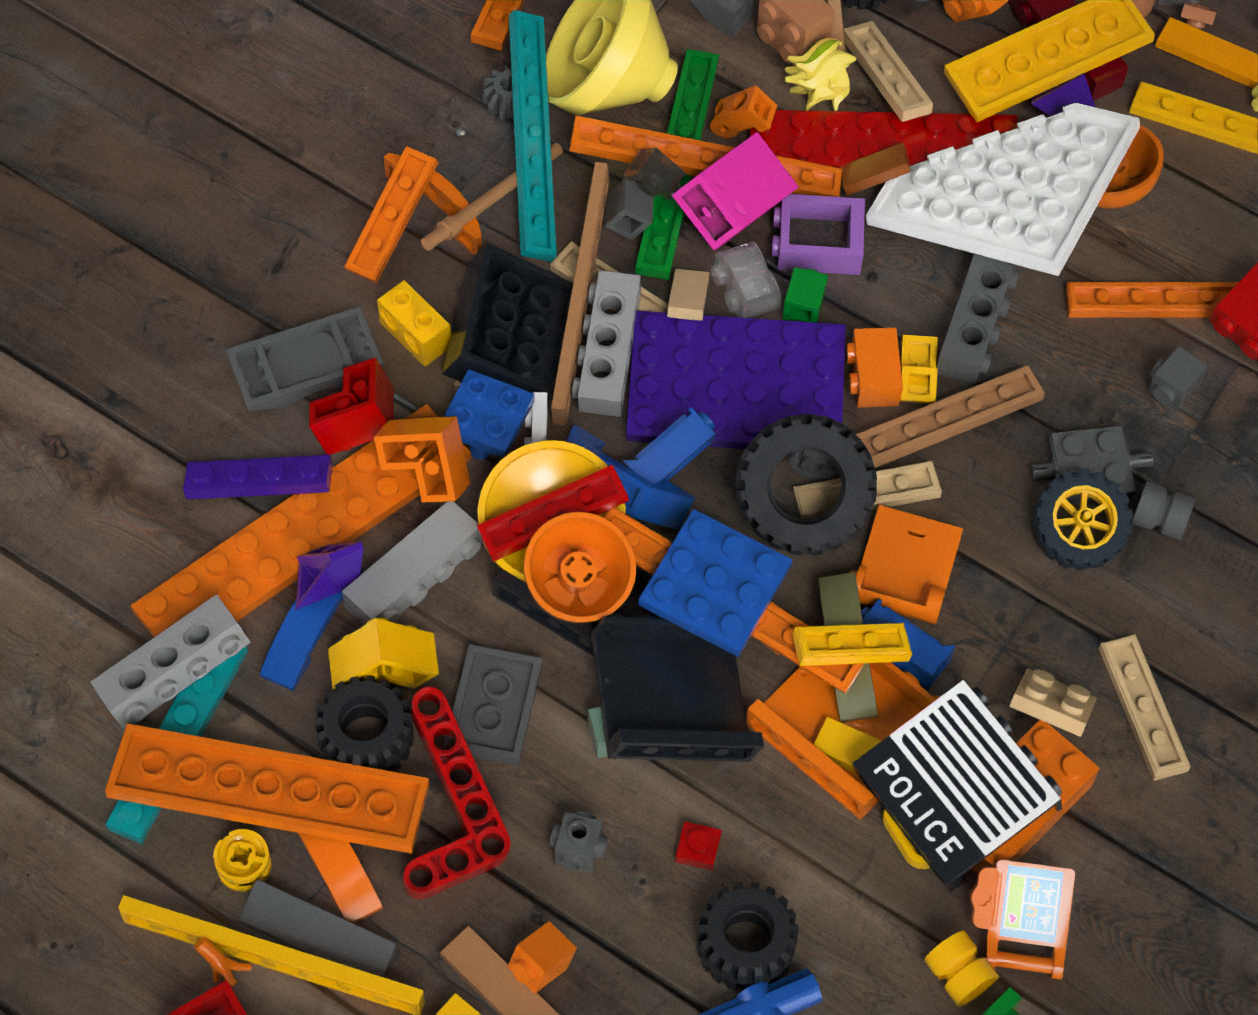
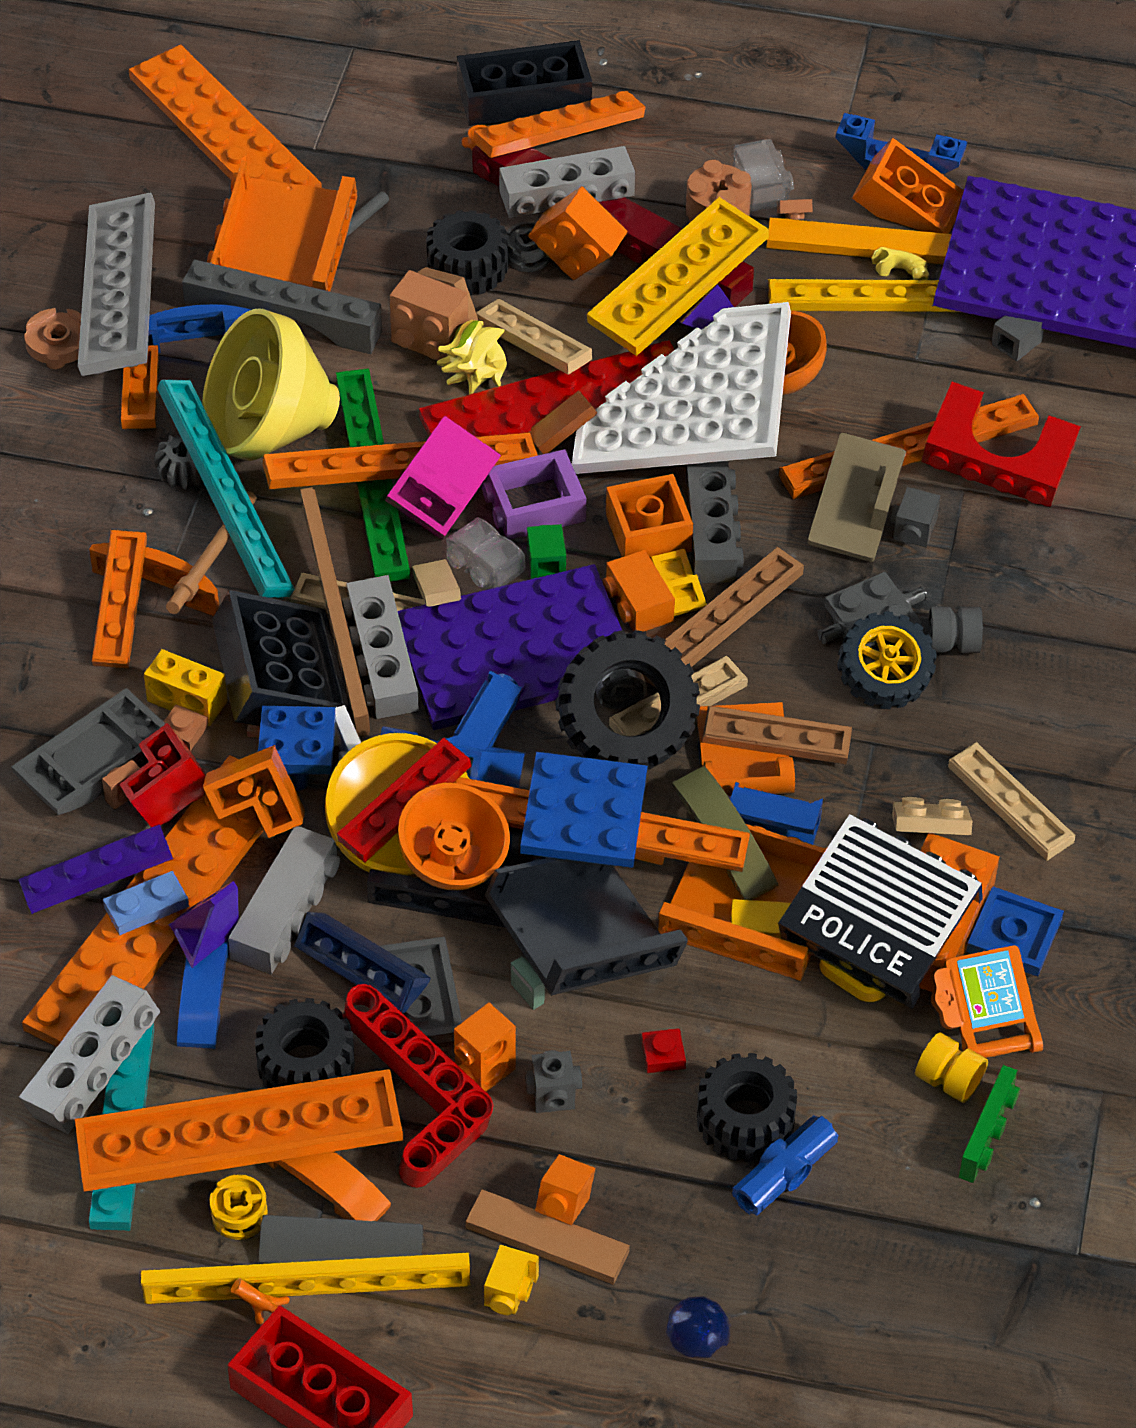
camera: 20 degrees left, 10 degrees down
(285, 528) = (146, 902): none -> medium blue plate
(312, 393) = (112, 790): none -> nougat plate
(386, 652) = (294, 973): yellow brick -> none
(400, 360) = (187, 724): none -> nougat plate
(458, 656) = (360, 959): none -> dark blue slope
(525, 789) = (486, 1046): none -> orange brick
(628, 209) = (347, 525): dark grey brick -> none
(655, 173) = (361, 482): clear smoke brick -> none
(743, 111) = (415, 410): orange leg -> none
(852, 644) = (732, 822): yellow tile -> none
(916, 295) = (649, 516): none -> orange brick
(943, 560) = (777, 734): none -> medium nougat tile
(1088, 843) = (1018, 922): none -> blue plate
(1127, 338) = (856, 497): none -> dark tan bracket

